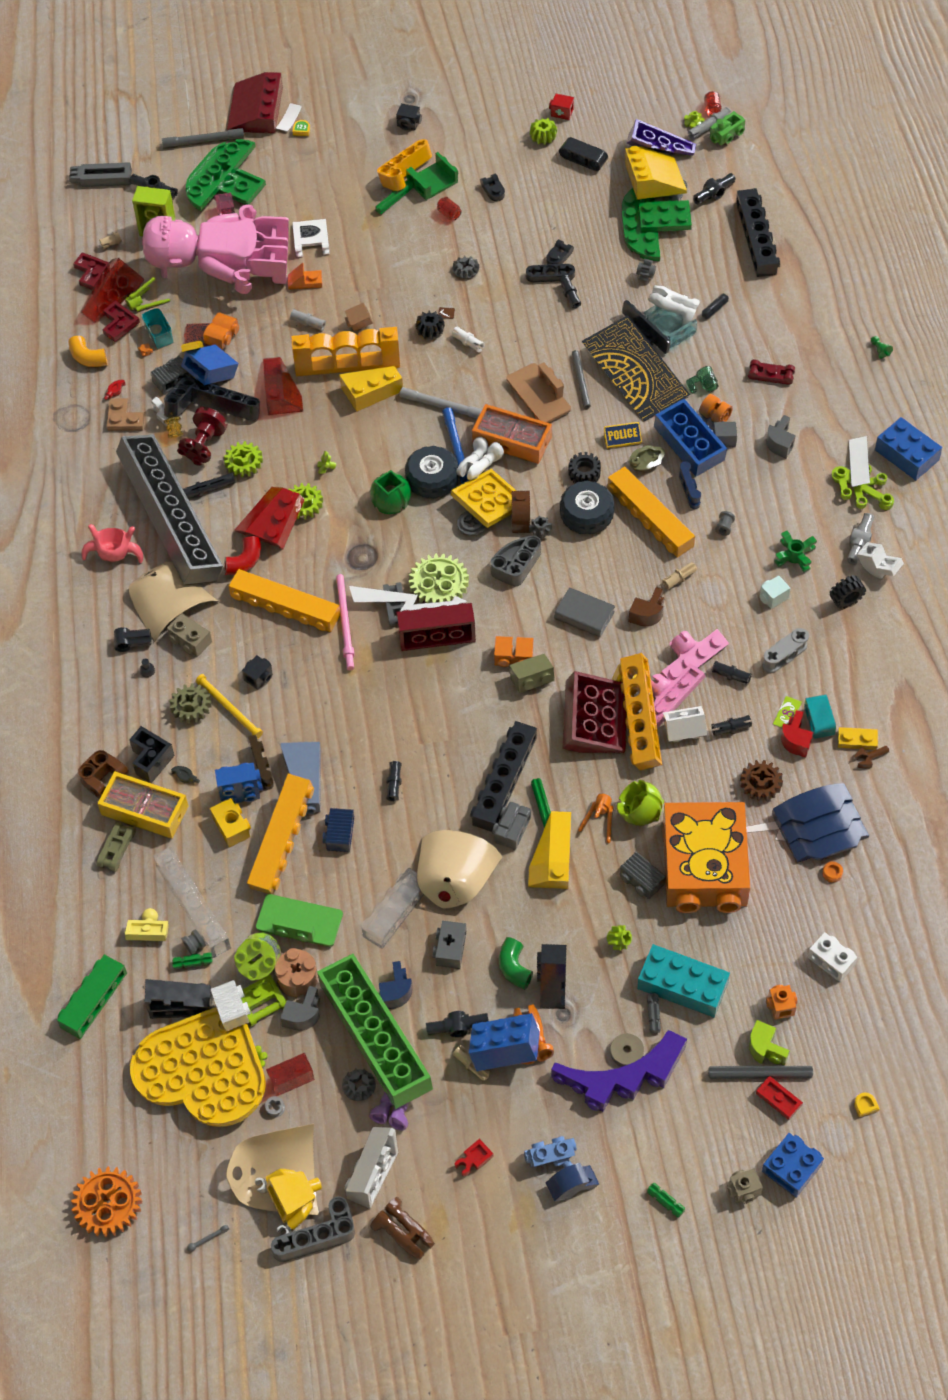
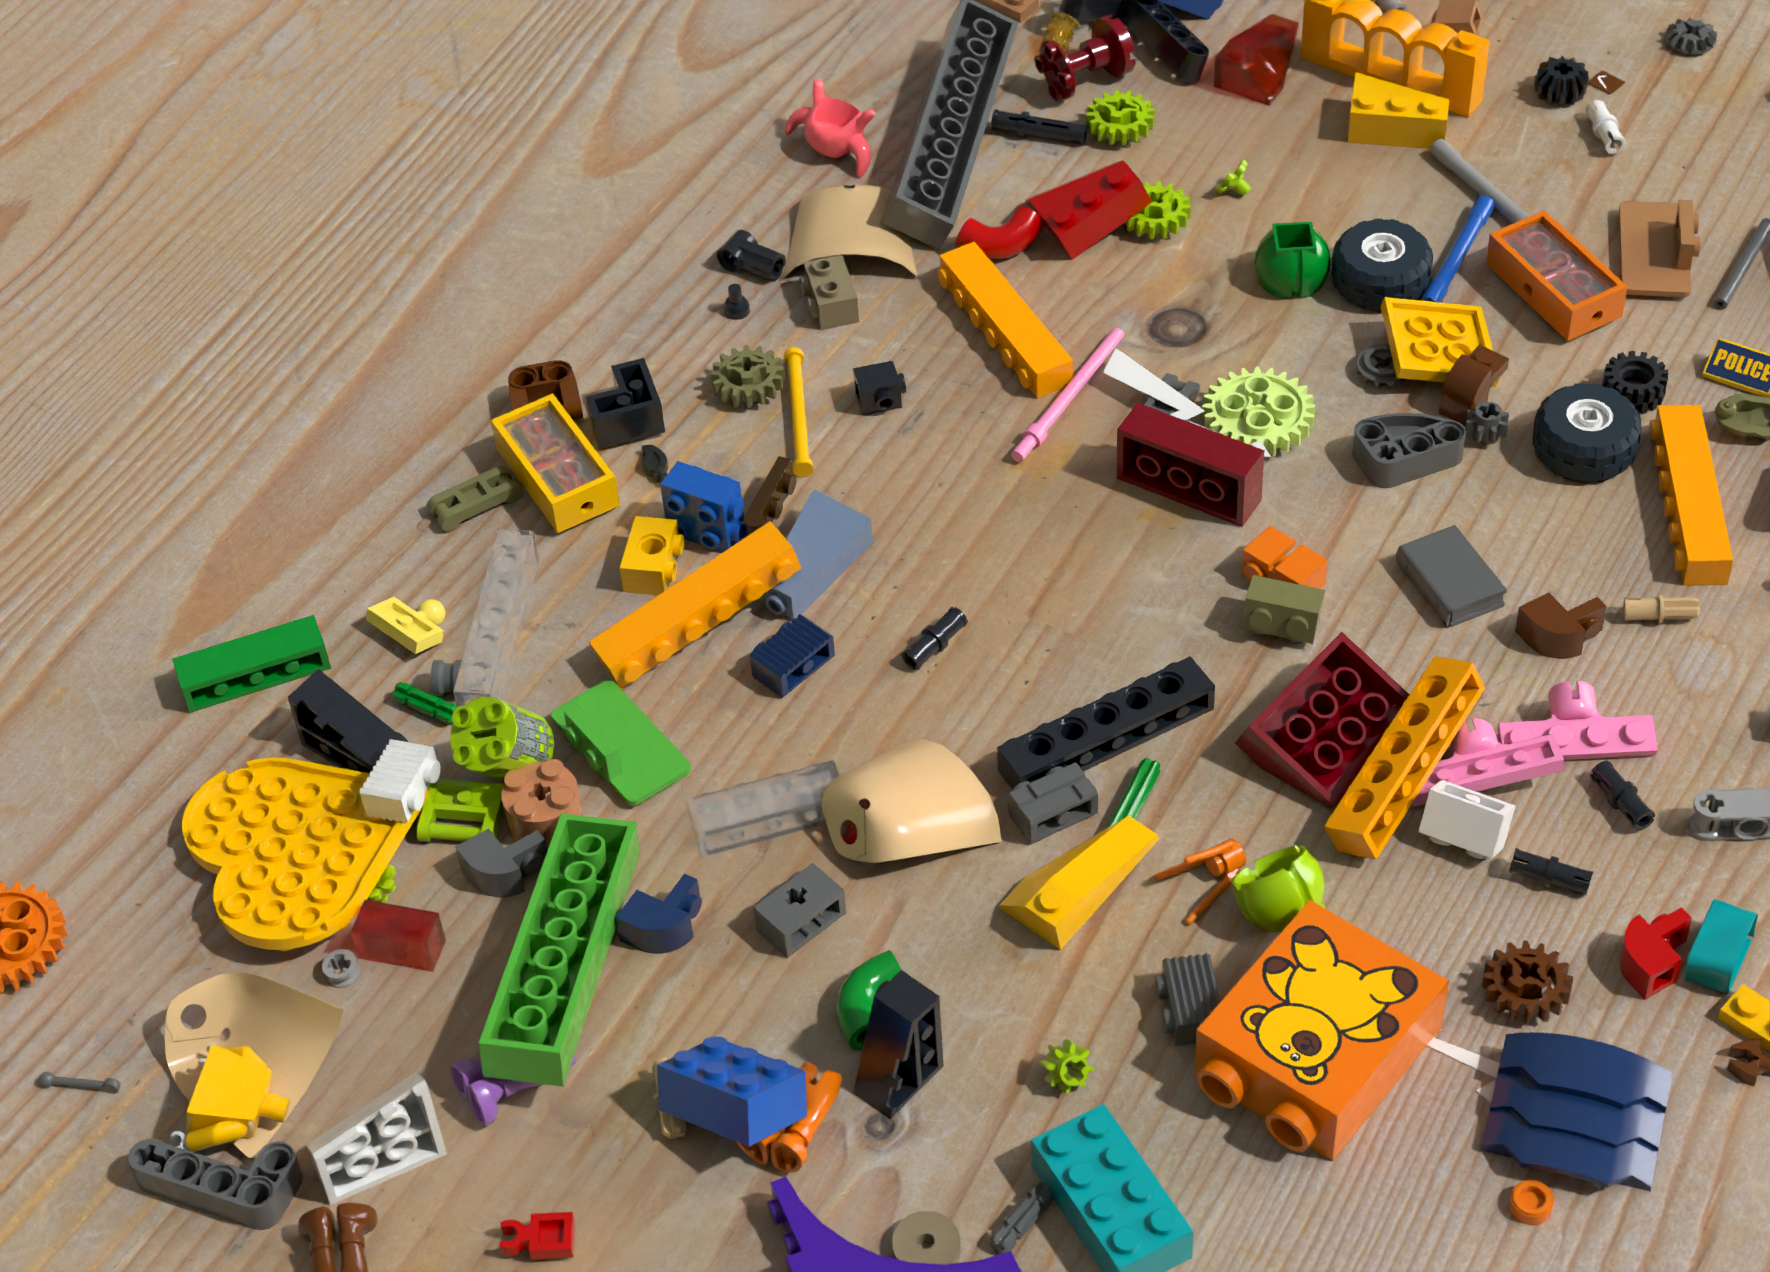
camera: 40 degrees right, 10 degrees down
(362, 1092) = (464, 1021): dark grey gear -> none
(456, 1024) = (696, 1023): black pin -> none
(480, 458) = (1472, 285): white piece -> none
(786, 710) = (1688, 899): lime sticker -> none

